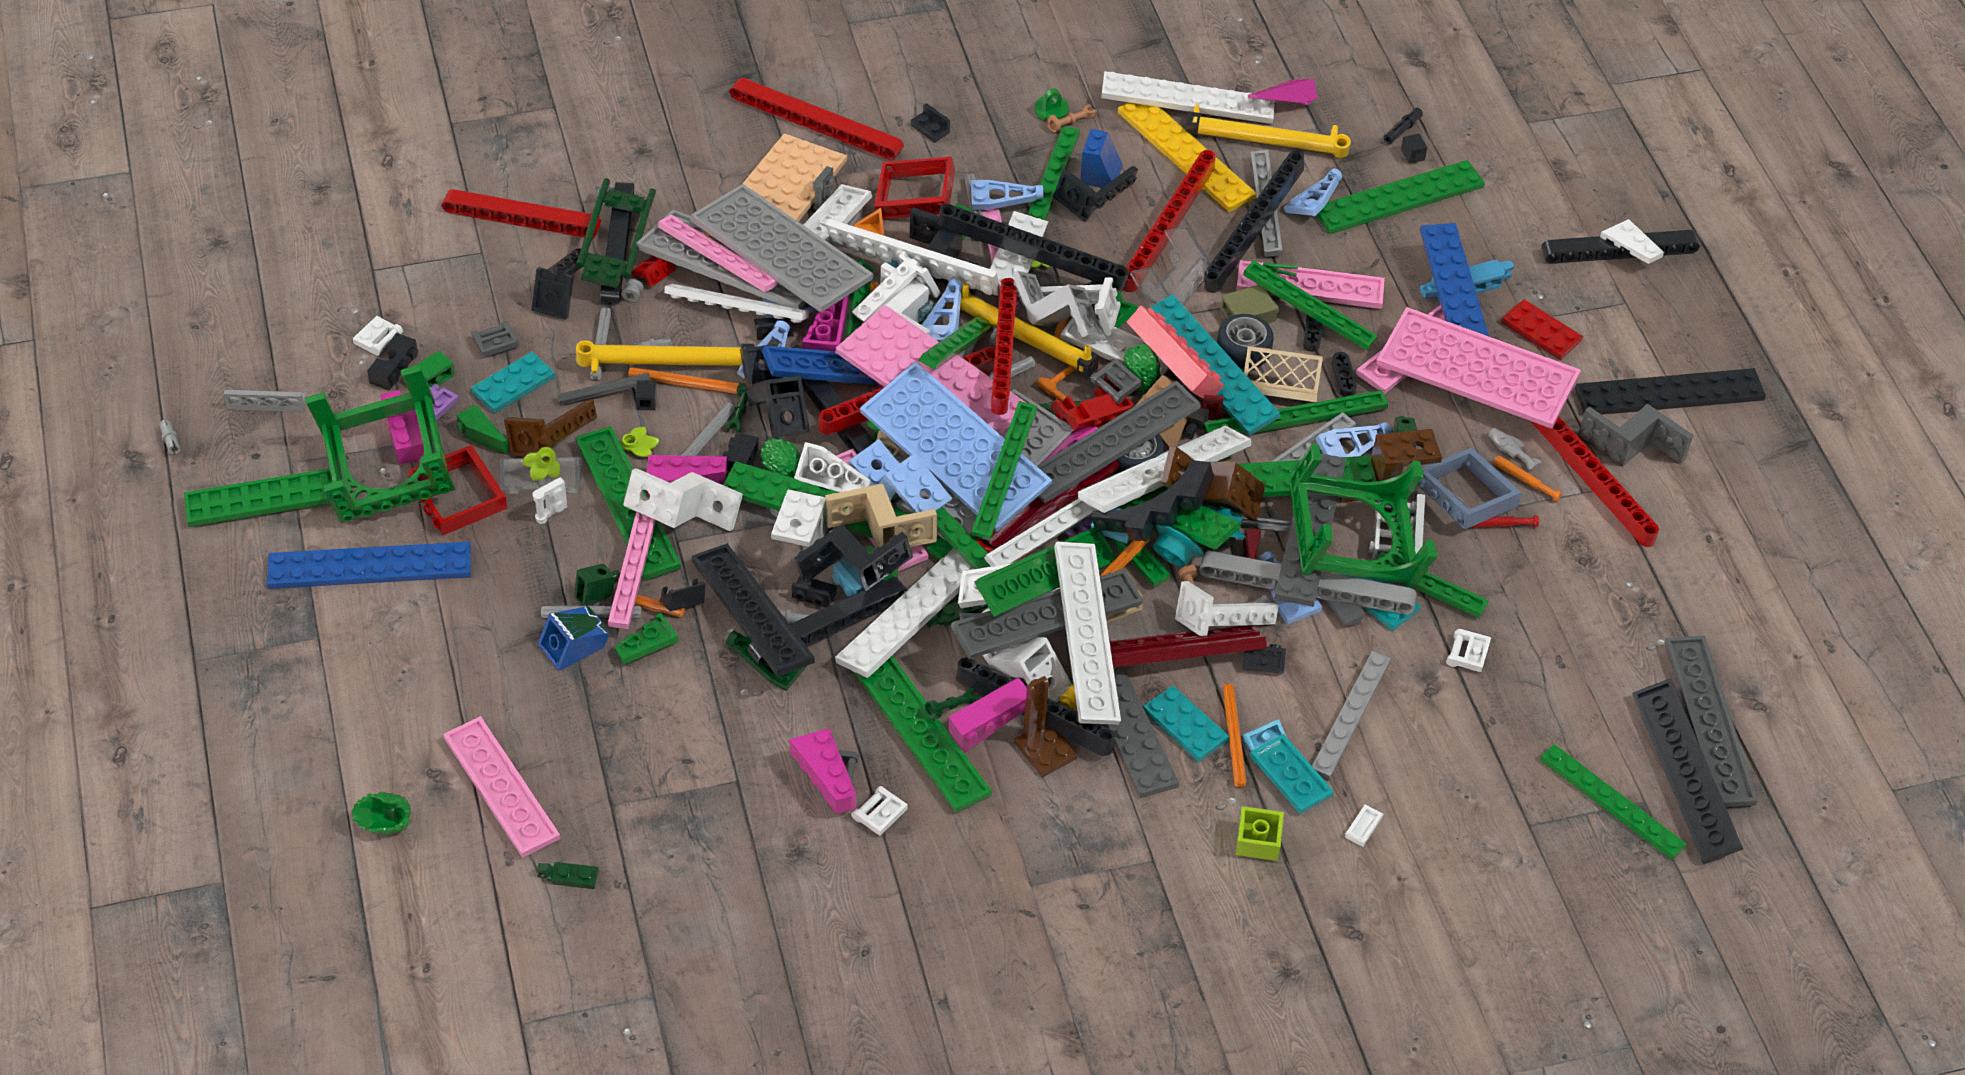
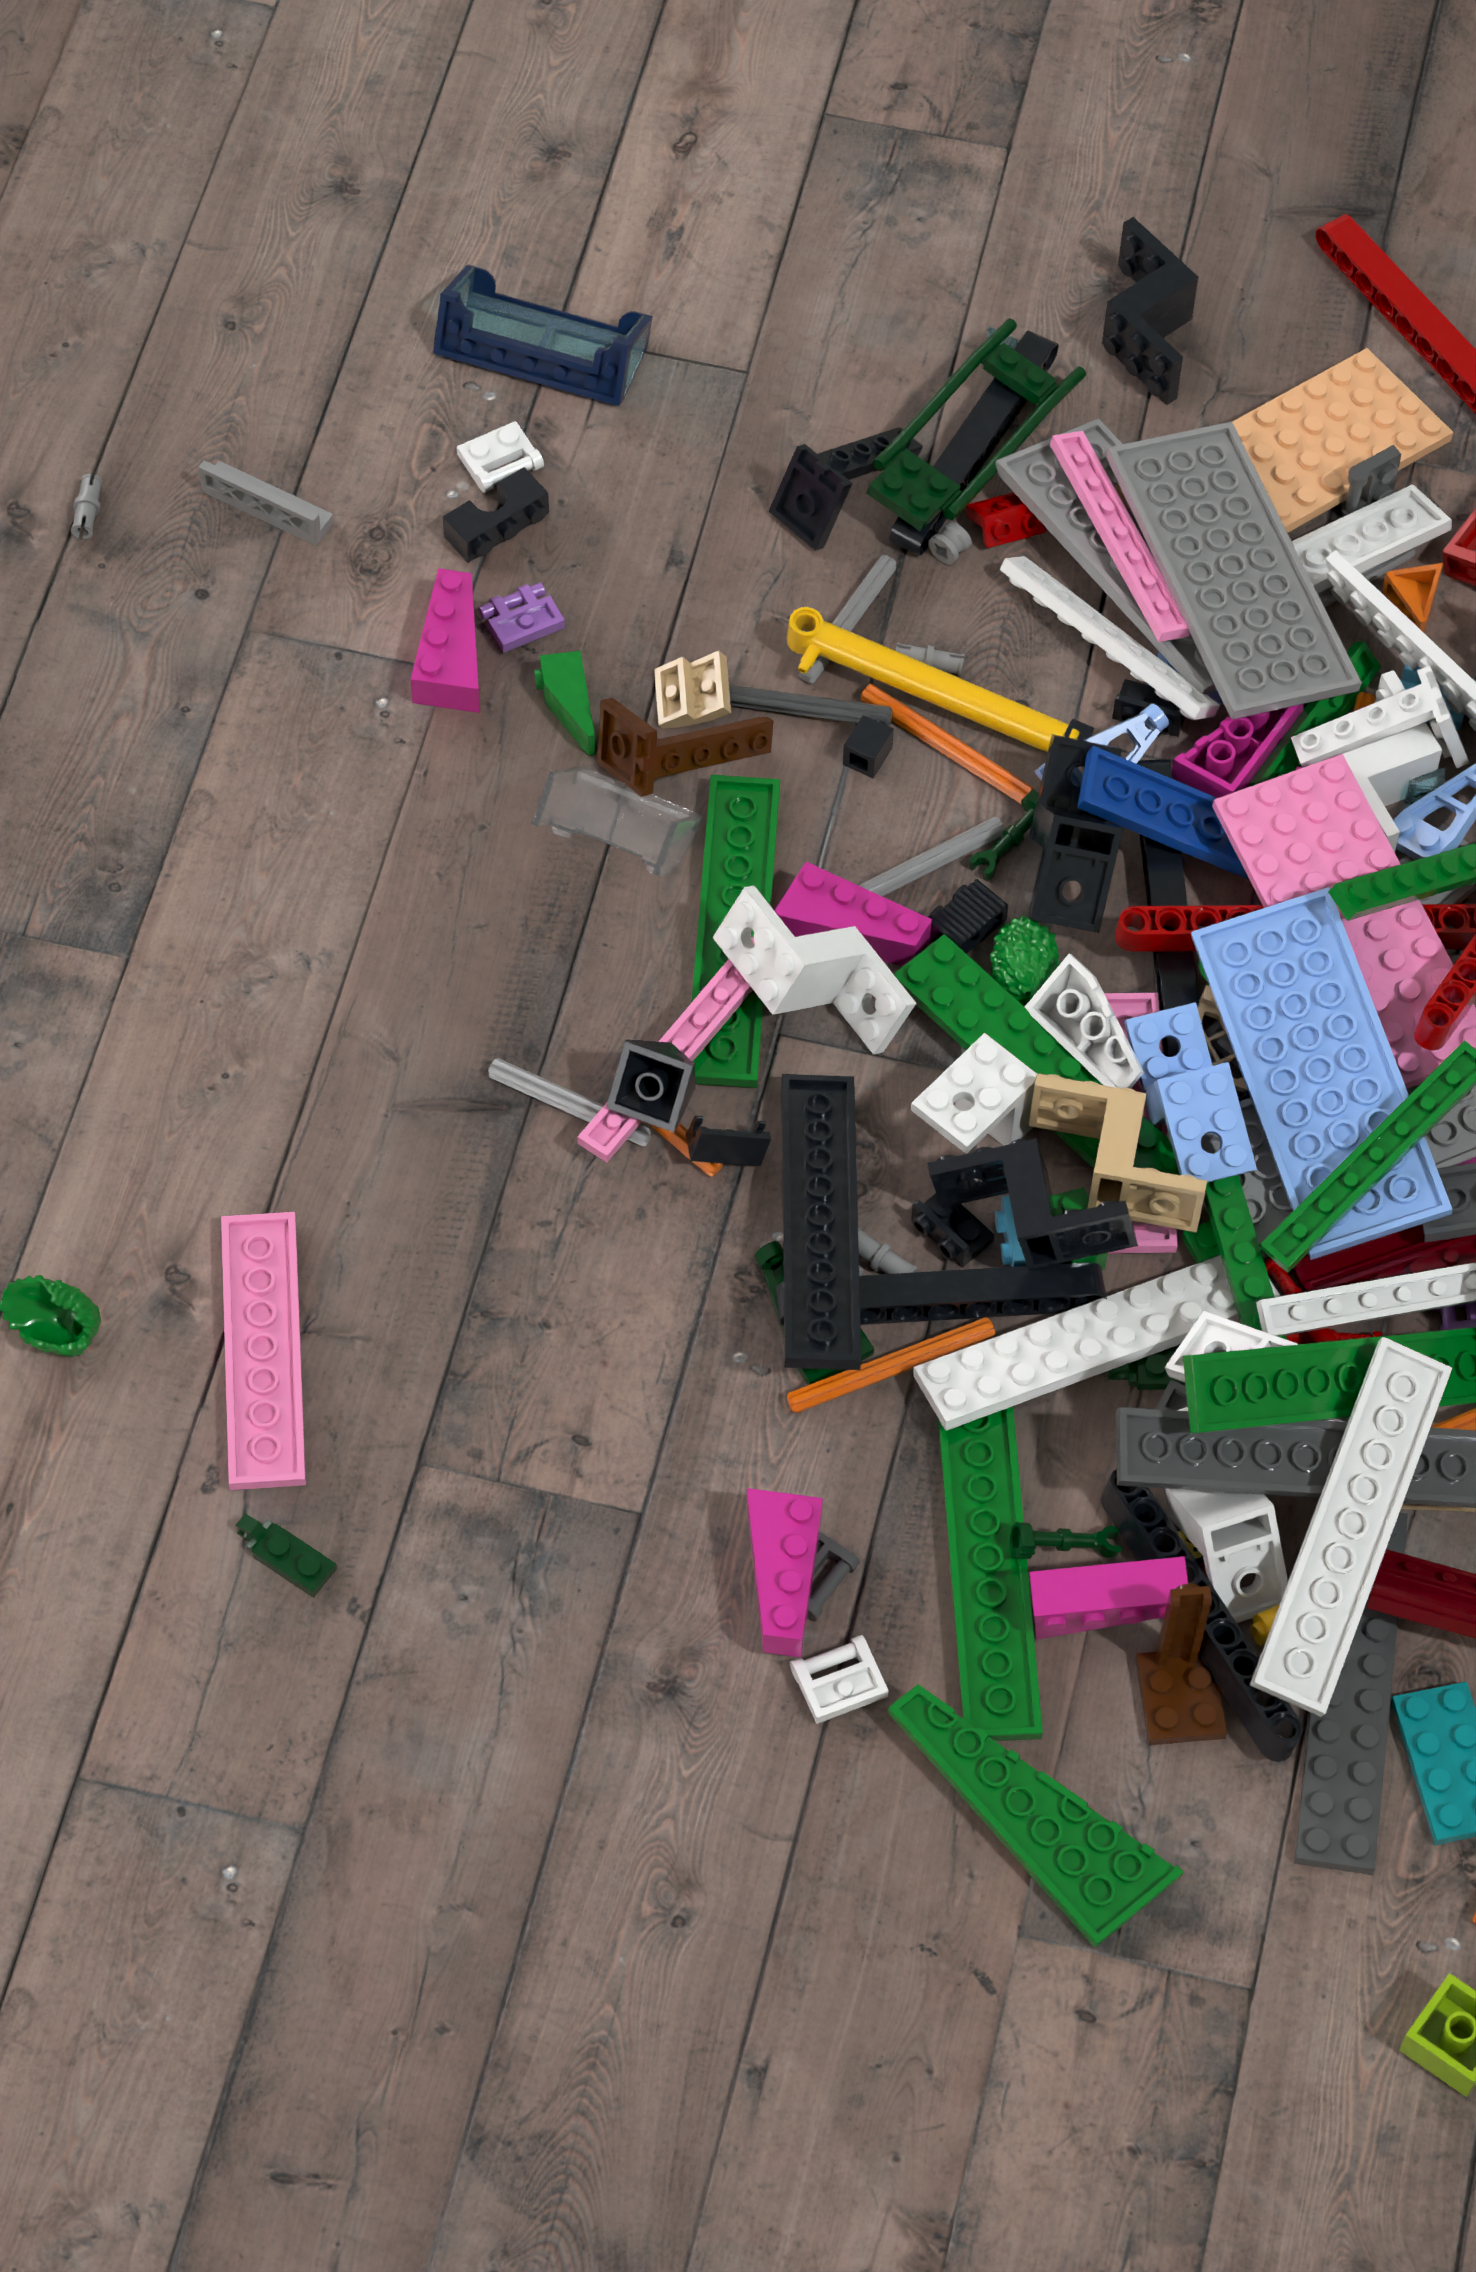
camera: 30 degrees right, 10 degrees up
(256, 497) = (176, 673): green plate -> none
(367, 275) = (538, 340): none -> dark blue windscreen
(369, 565) = (272, 864): blue plate -> none
(377, 500) = (437, 746): green arch -> none
(437, 368) = (547, 558): green brick -> none
(473, 514) = (471, 736): red window -> none
(495, 339) = (680, 548): dark grey plate -> none
(513, 382) = (668, 630): teal plate -> none
(518, 213) = (841, 324): red beam -> none
(540, 466) = (628, 803): lime plate -> none
(543, 402) = (692, 691): none -> tan slope
(555, 499) = (616, 874): white plate -> none
(572, 636) = (514, 1134): blue slope -> none
(594, 584) = (591, 1056): dark green torso -> none
(634, 580) = (653, 1083): none -> black slope
(639, 442) = (817, 827): lime plate -> none
(648, 640) = (639, 1194): green wing -> none
(671, 152) = (1149, 311): none -> black bracket
(820, 664) = (890, 1365): none -> orange axle
(1035, 836) = (1069, 1849): none -> green wing

